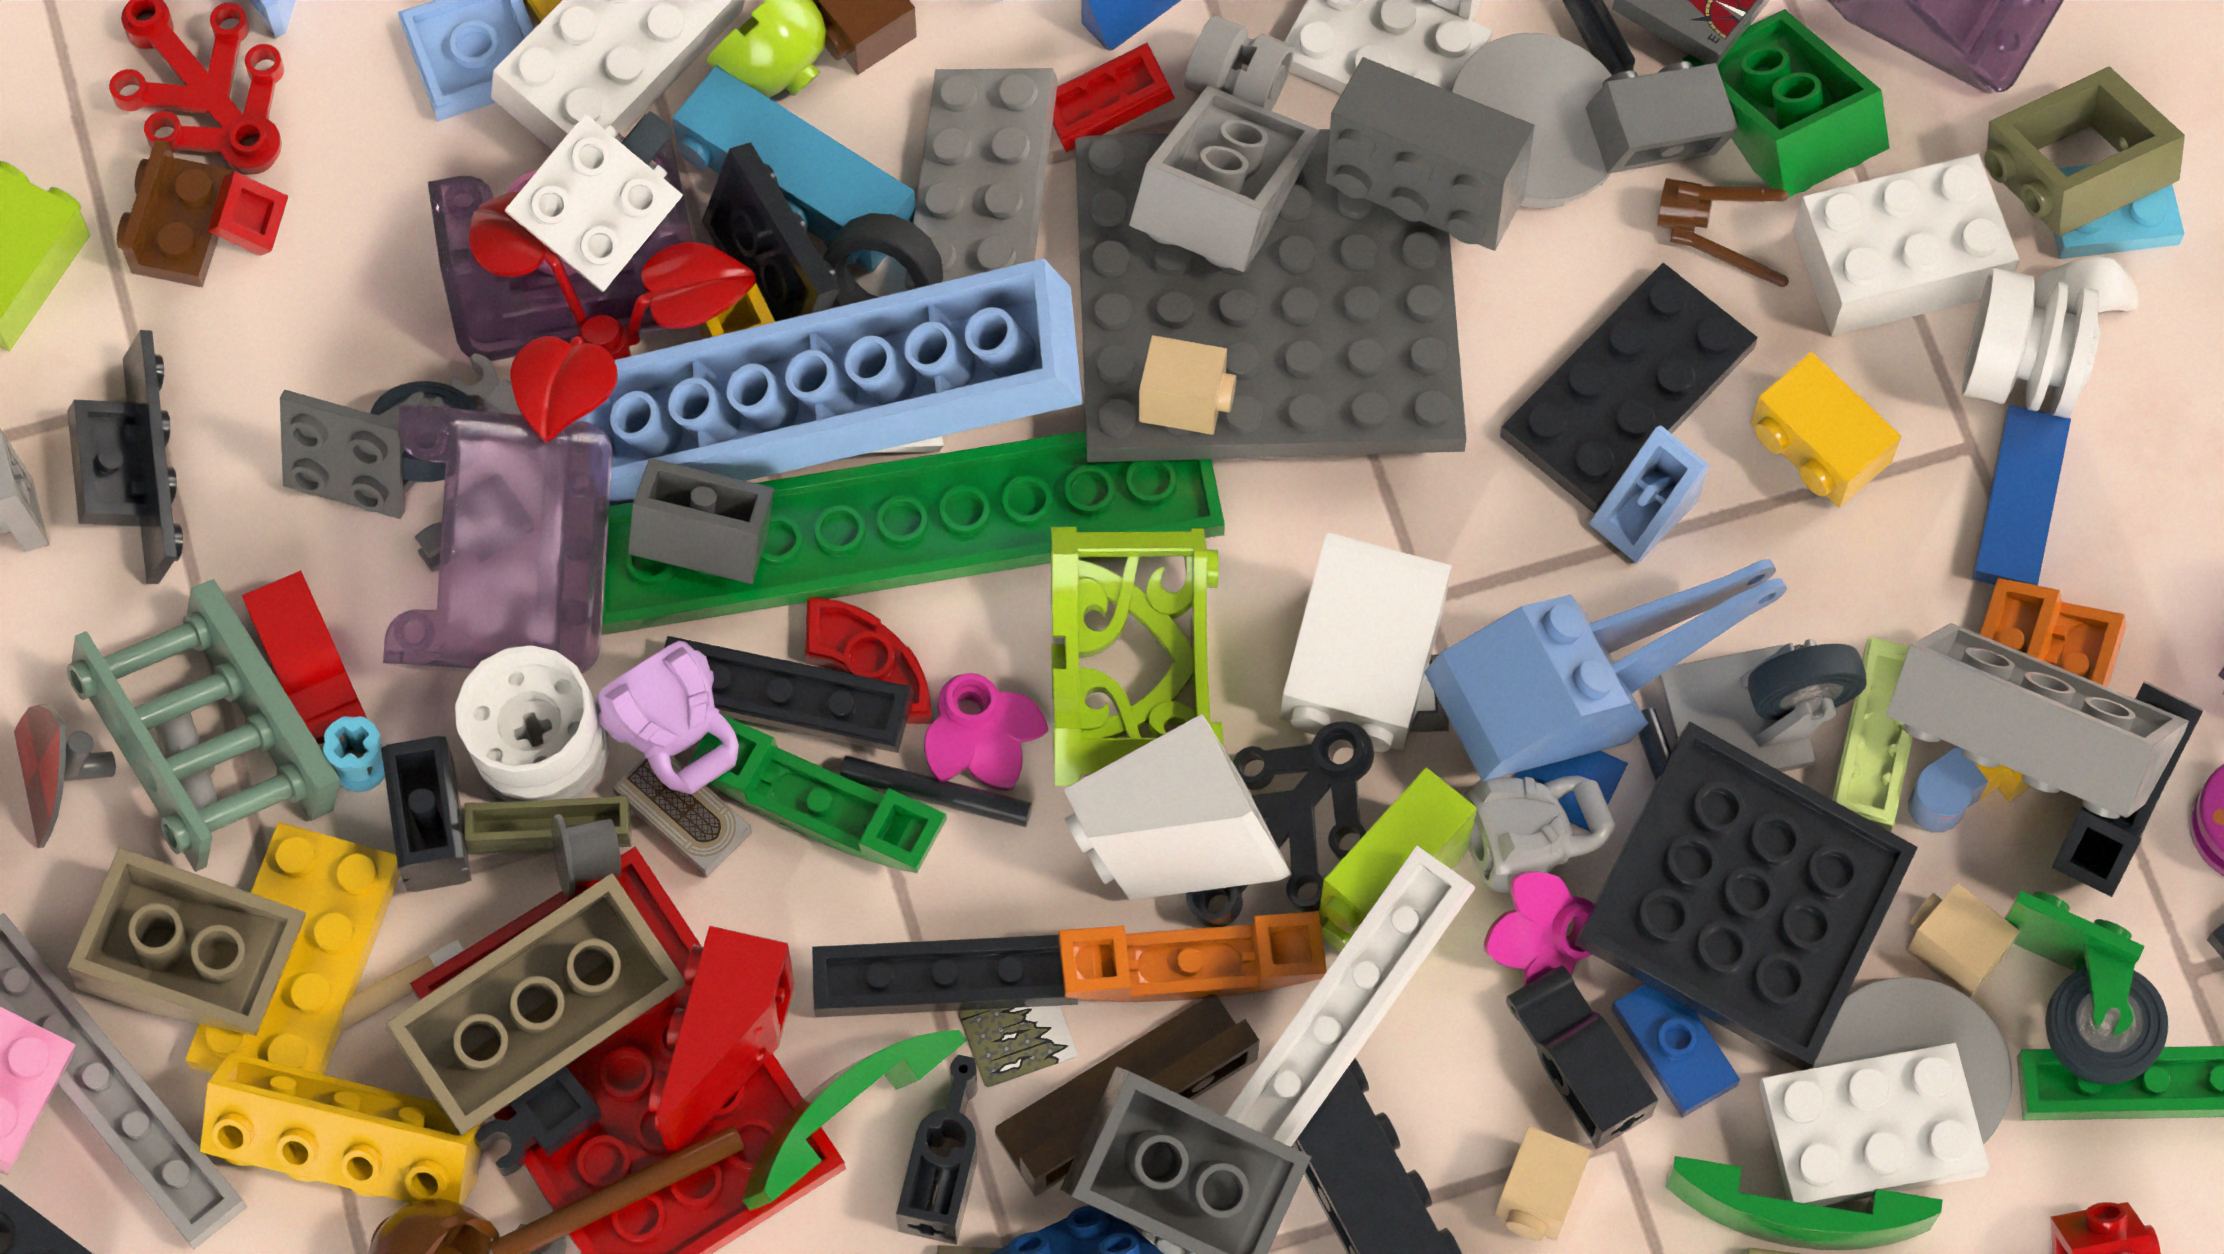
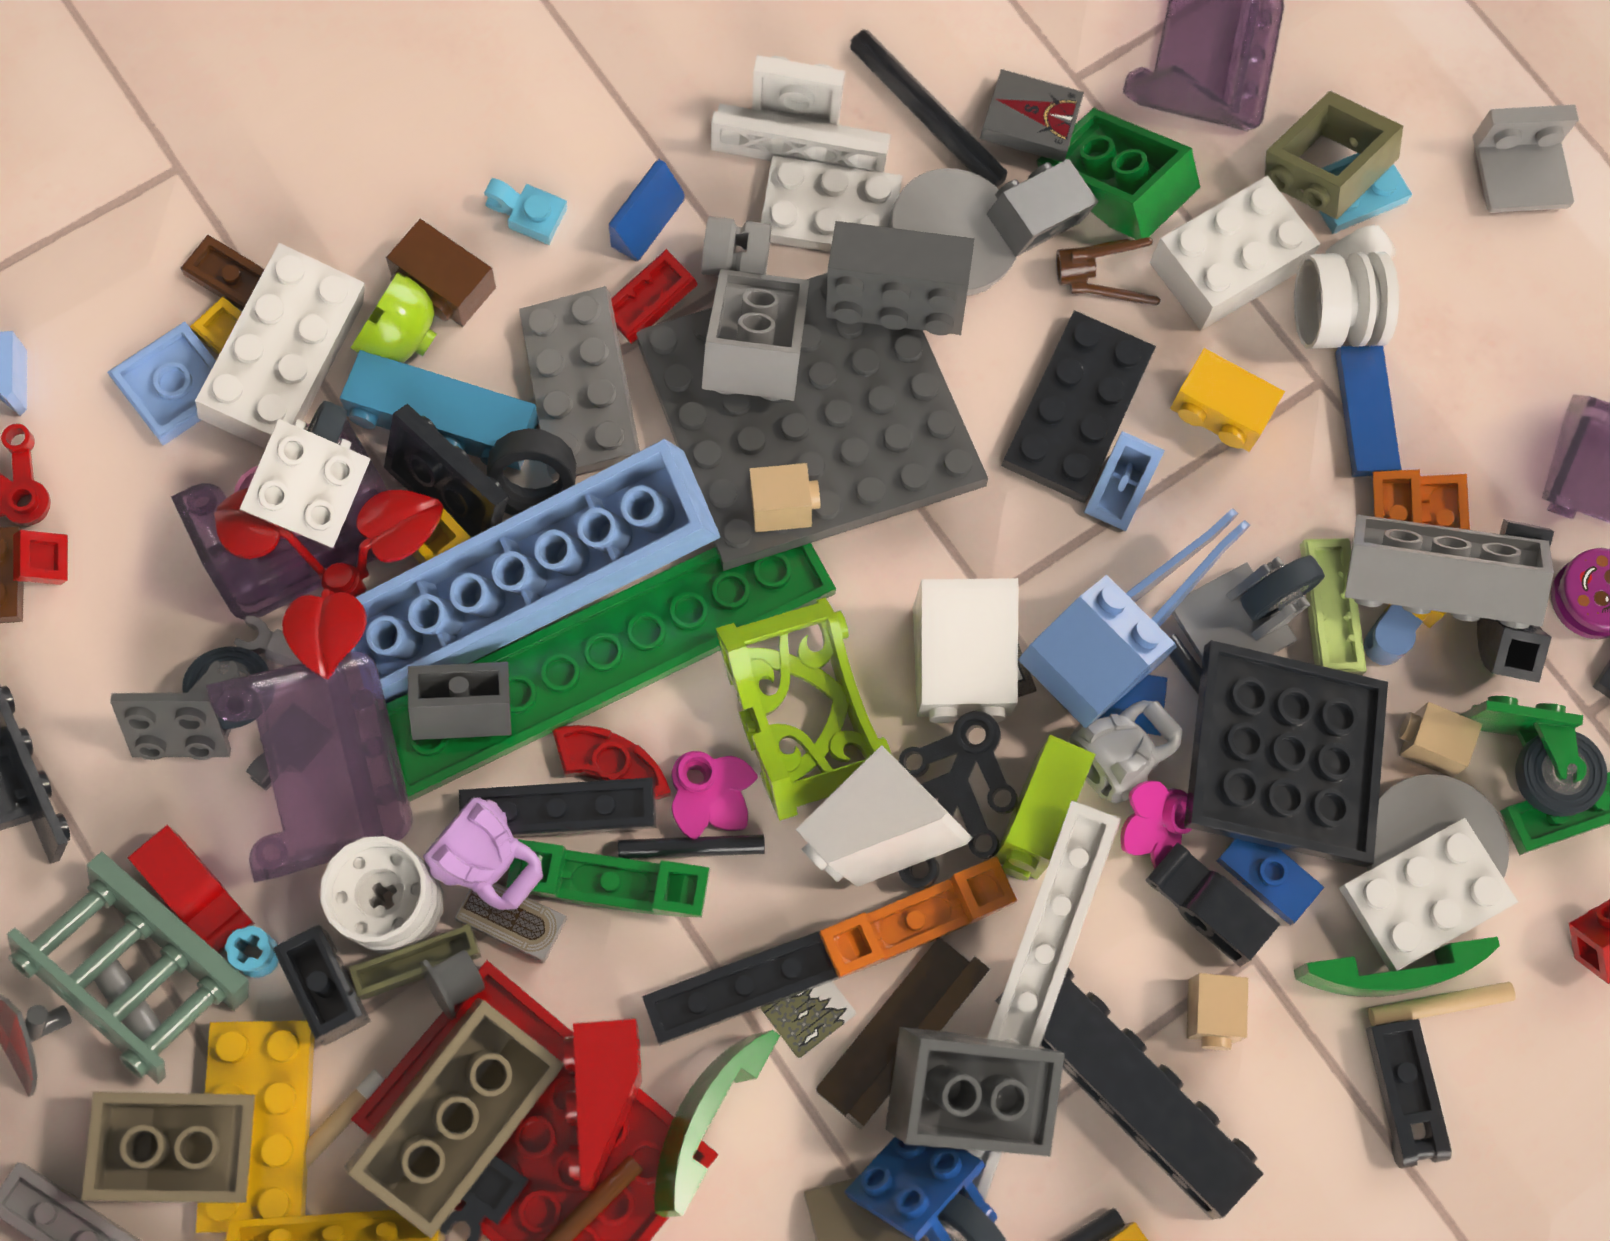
camera: 25 degrees left, 5 degrees up
(951, 1173) = (802, 1136): black piece -> none

